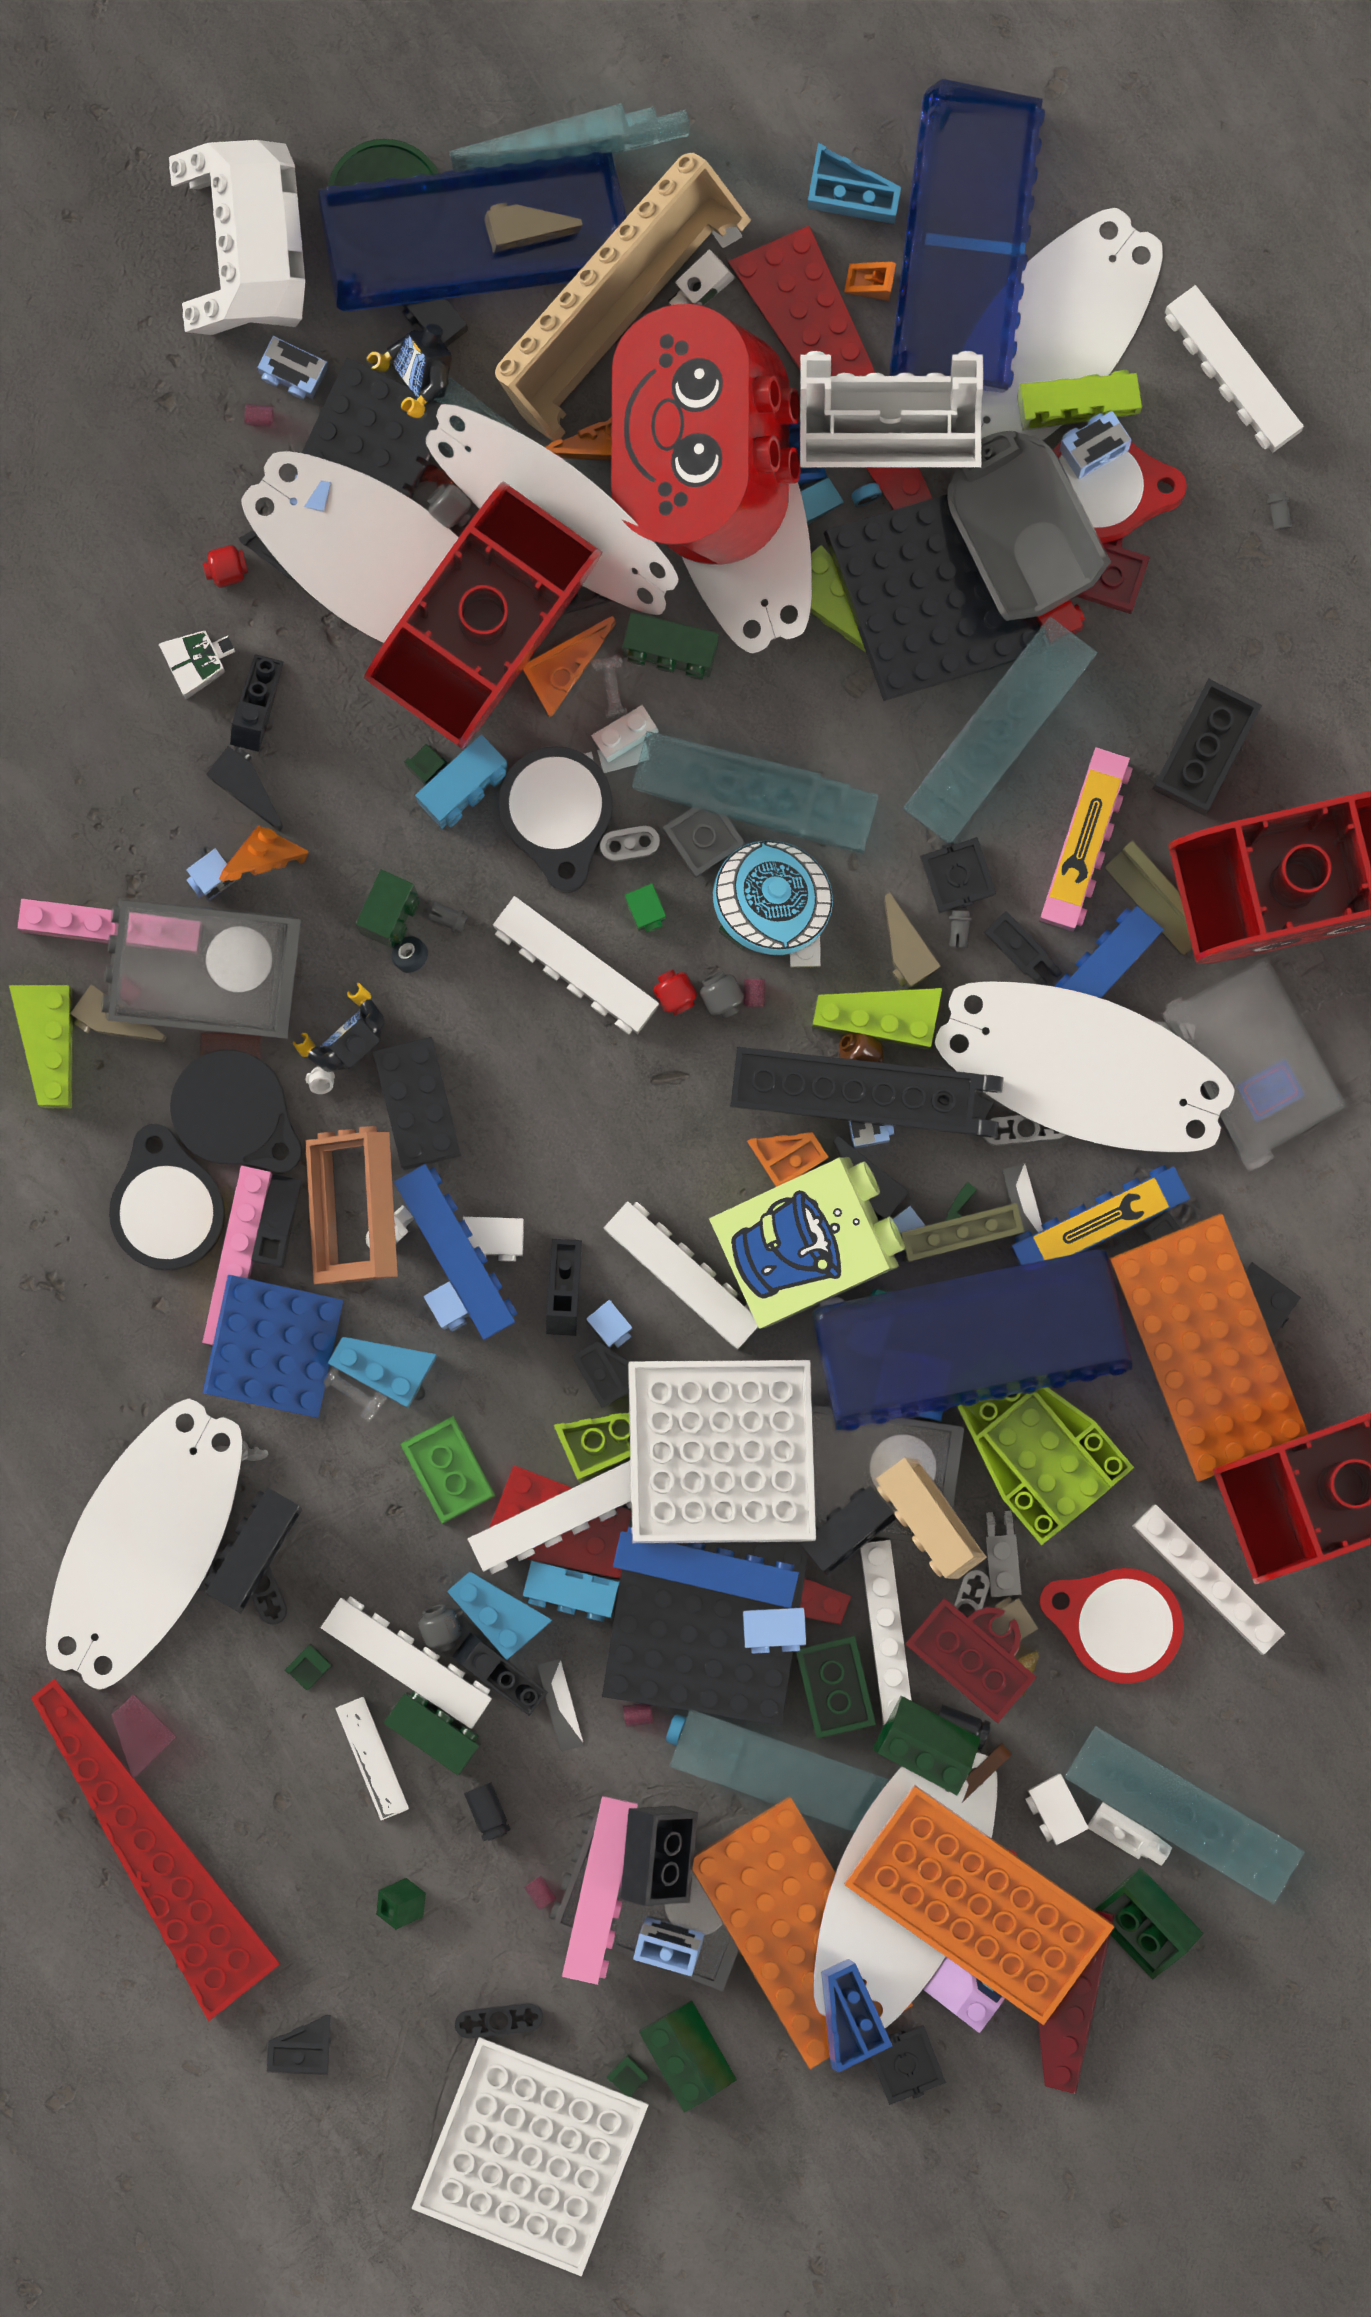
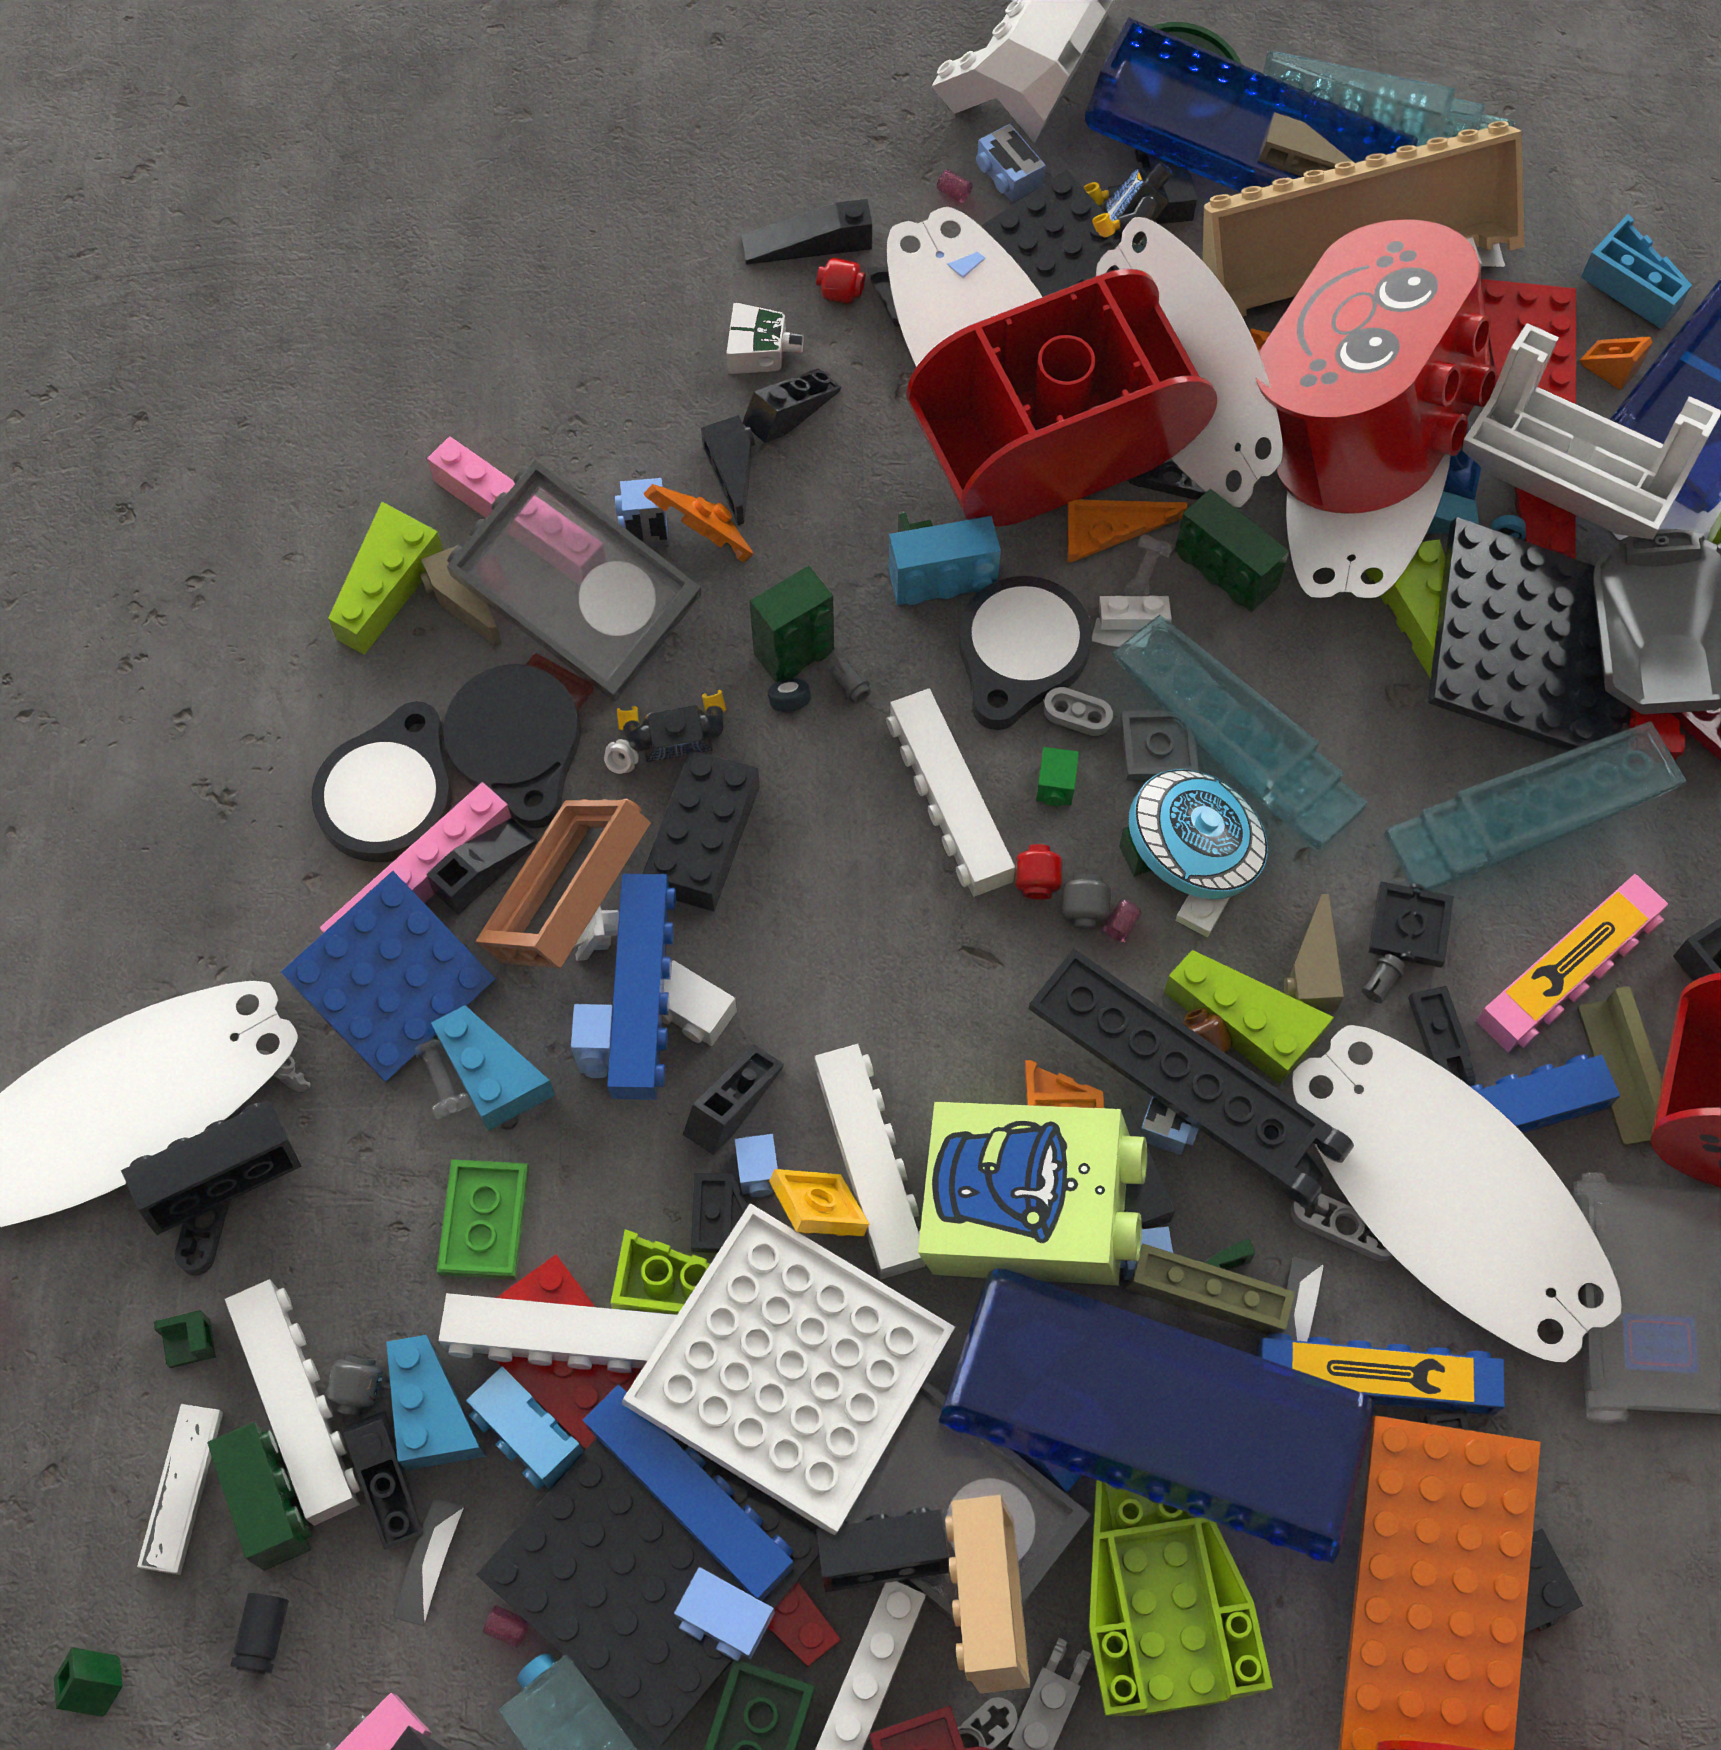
camera: 30 degrees right, 20 degrees down
(172, 535) = (820, 232): none -> black slope
(670, 1329) = (818, 1203): none -> yellow plate

